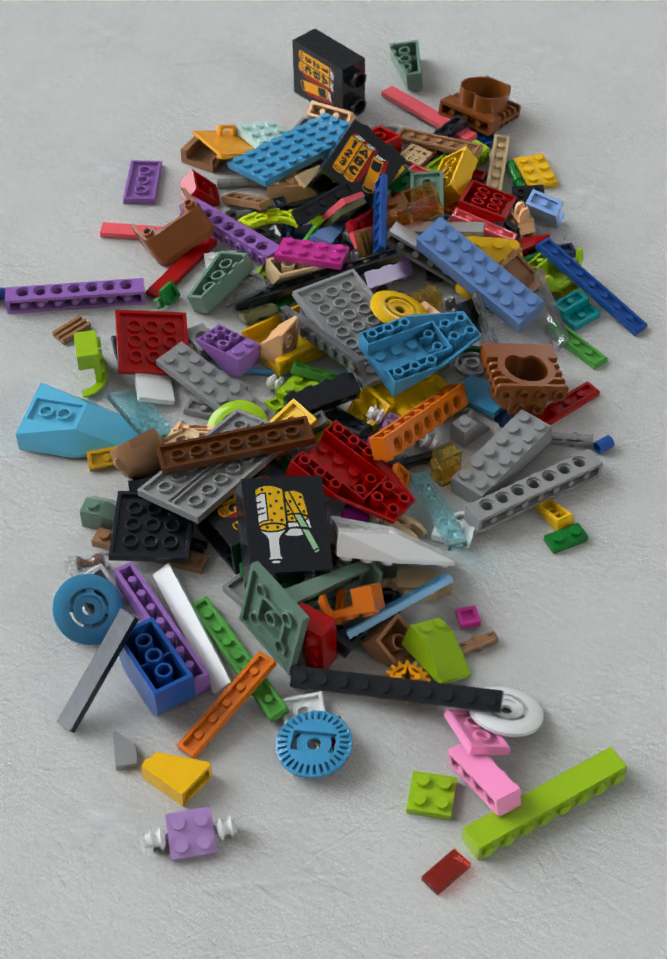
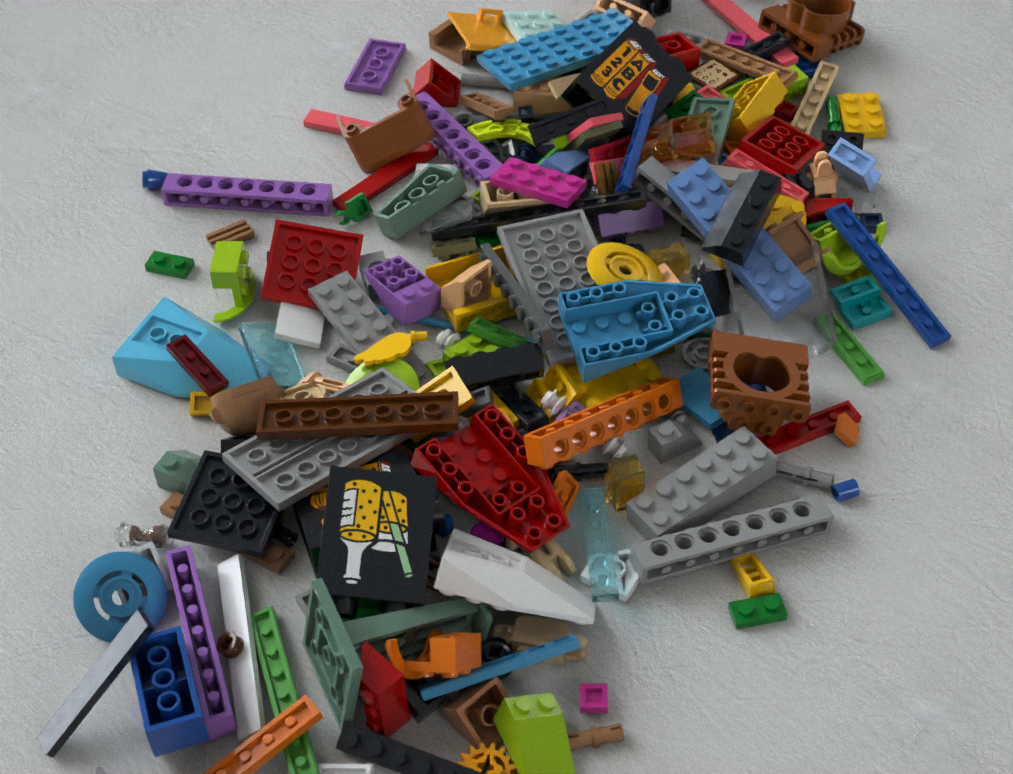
camera: 15 degrees right, 0 degrees up
(30, 359) = (169, 265): none -> green plate
(87, 430) = (197, 365): none -> dark red tile
(190, 629) = (230, 645): none -> reddish brown bush
(236, 394) = (390, 348): none -> yellow animal
(425, 126) = (736, 40): none -> dark pink plate
(481, 255) = (743, 216): none -> black slope
(592, 402) = (846, 430): none -> orange tile

